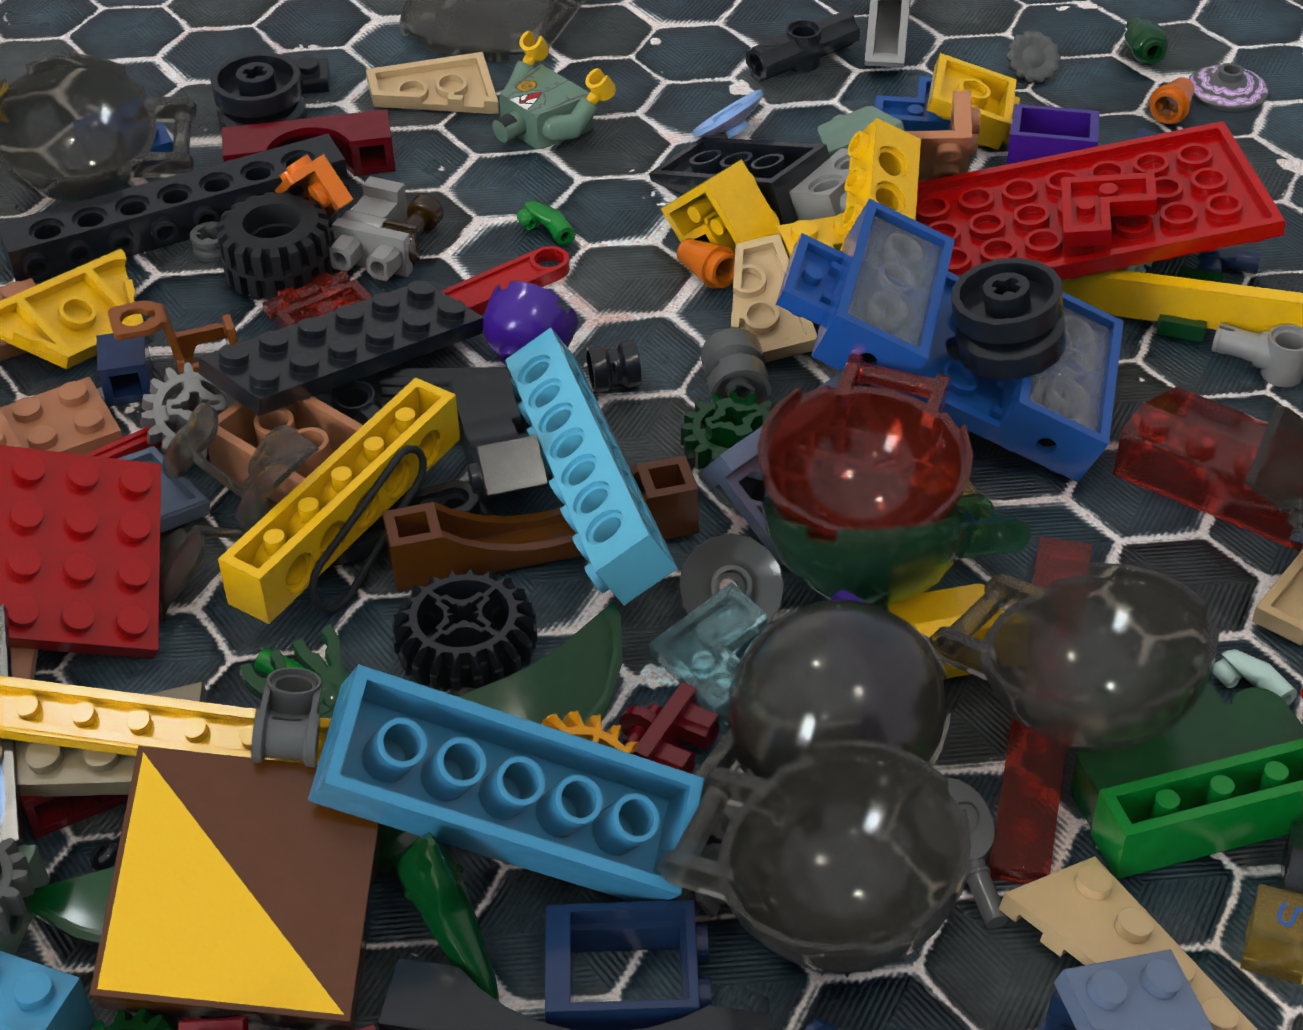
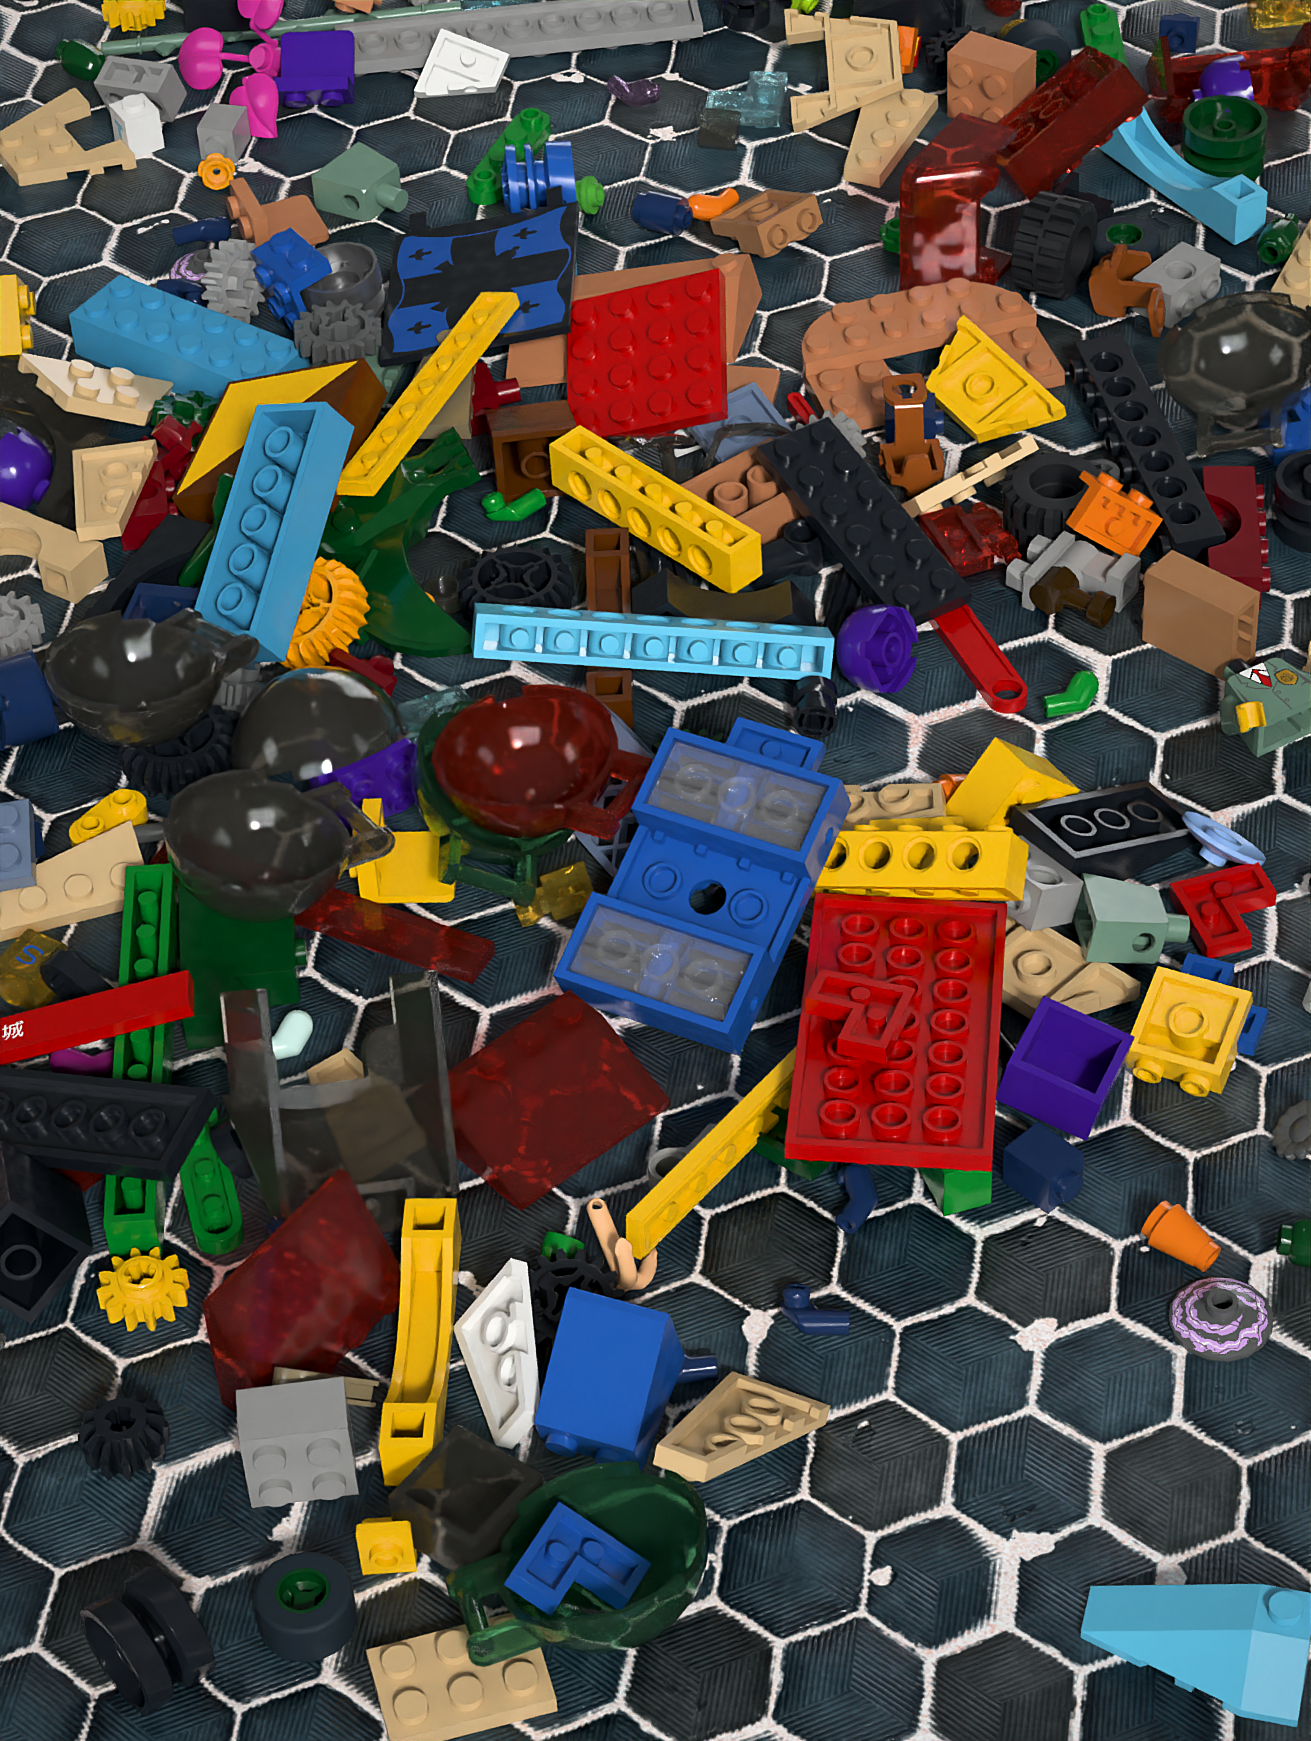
camera: 105 degrees right, 0 degrees up
(182, 641) = (520, 446): none -> reddish brown slope
(227, 286) = (962, 484): none -> tan wing
(288, 717) = (373, 419): dark grey piece -> none
(352, 520) = (679, 543): black piece -> none
(450, 135) = (1199, 614): none -> medium nougat brick
(797, 119) = (1216, 903): none -> red plate
(949, 151) = (1047, 944): nougat bracket -> none
(982, 953) = (109, 813): none -> yellow plate
(1009, 318) = (677, 880): black wheel -> none

